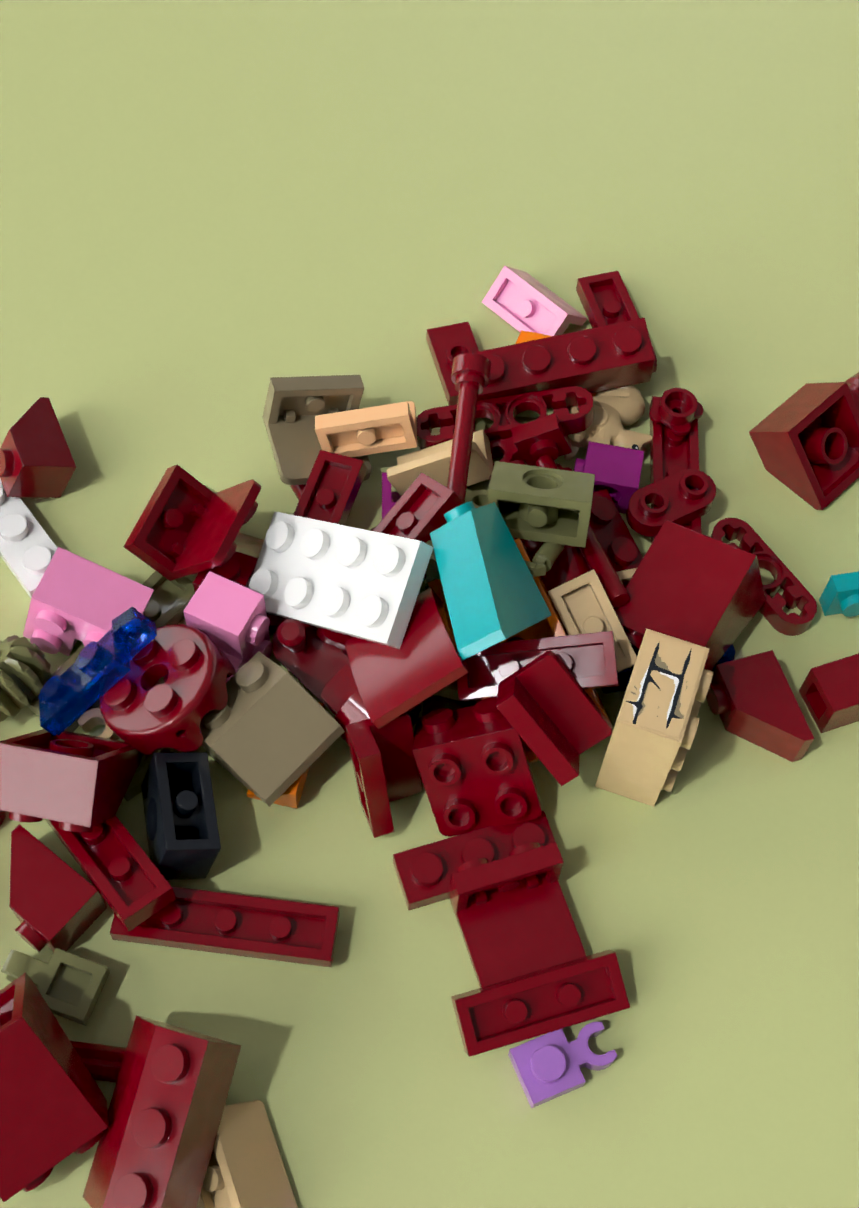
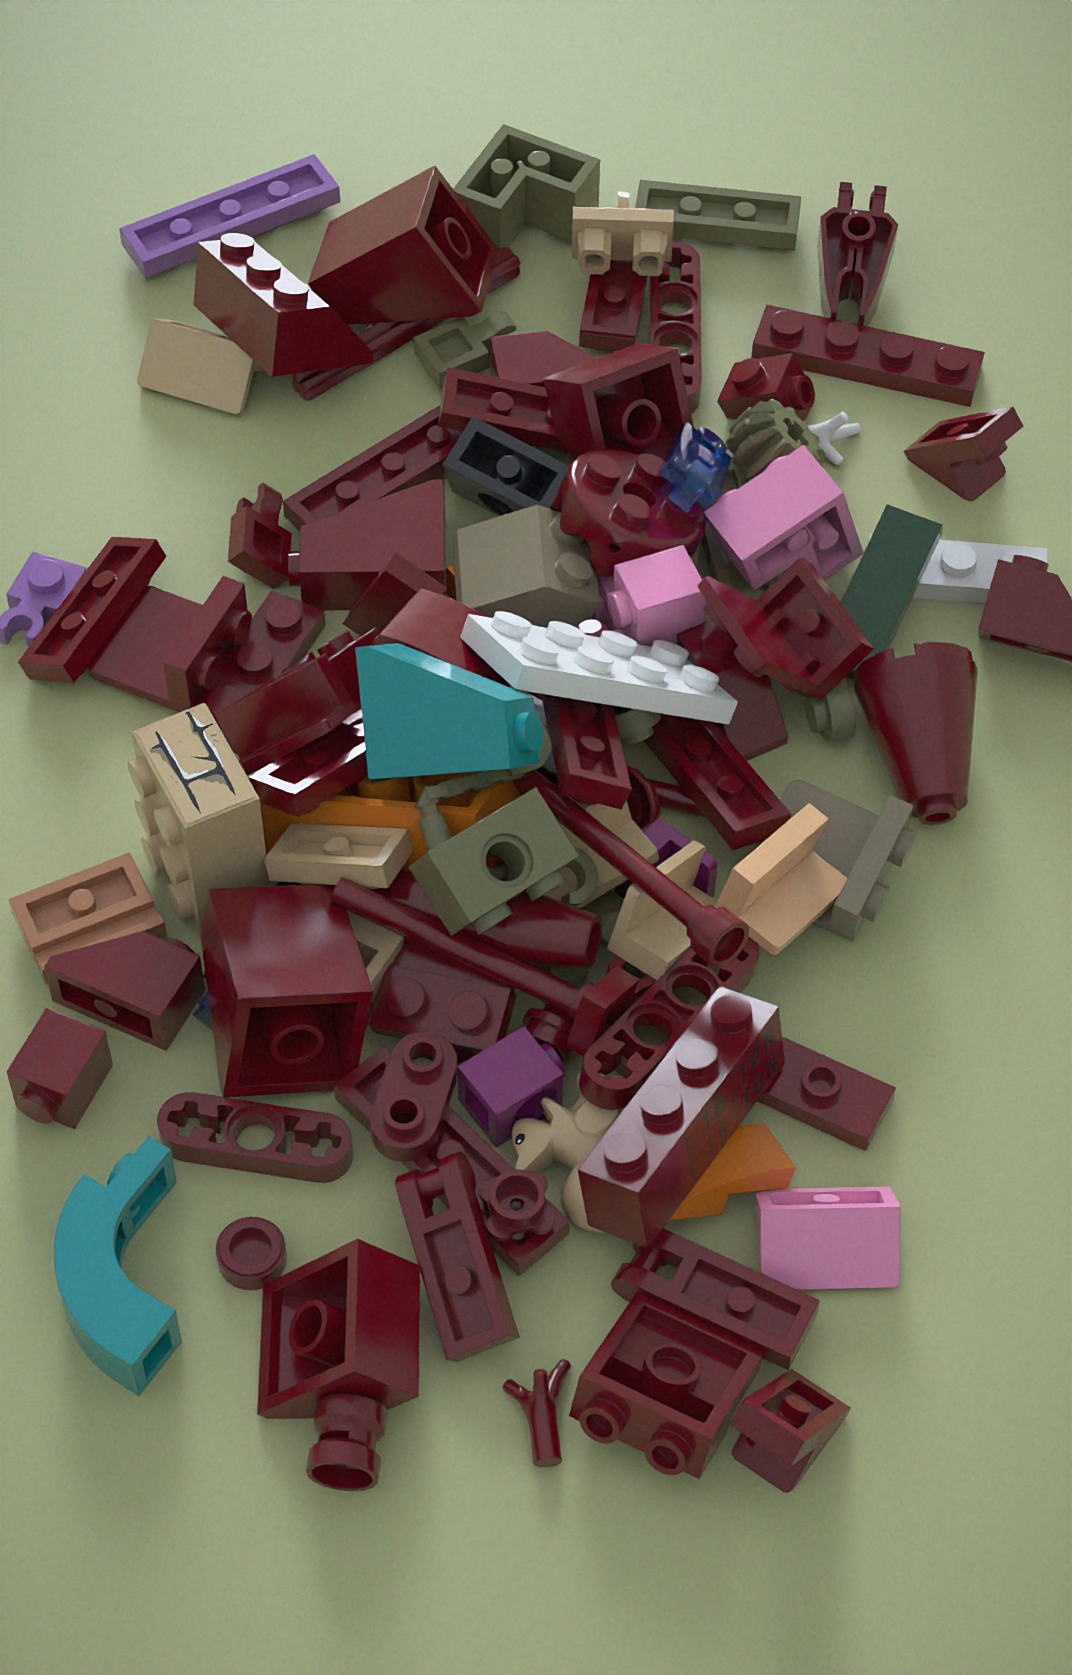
camera: 135 degrees right, 5 degrees down
(91, 538) = (889, 575): none -> dark green tile
(187, 437) = (923, 723): none -> dark red cone
(314, 857) = (351, 547): none -> dark red slope
(375, 949) = (257, 540): none -> dark red plate
(646, 252) = (786, 1428): none -> dark red slope
(685, 304) = (665, 1385): none -> dark red plate
(725, 423) = (456, 1259): none -> dark red plate
(743, 353) = (541, 1411): none -> dark red bar
(746, 775) = (86, 910): none -> nougat plate
(815, 527) = (251, 1253): none -> dark red tile

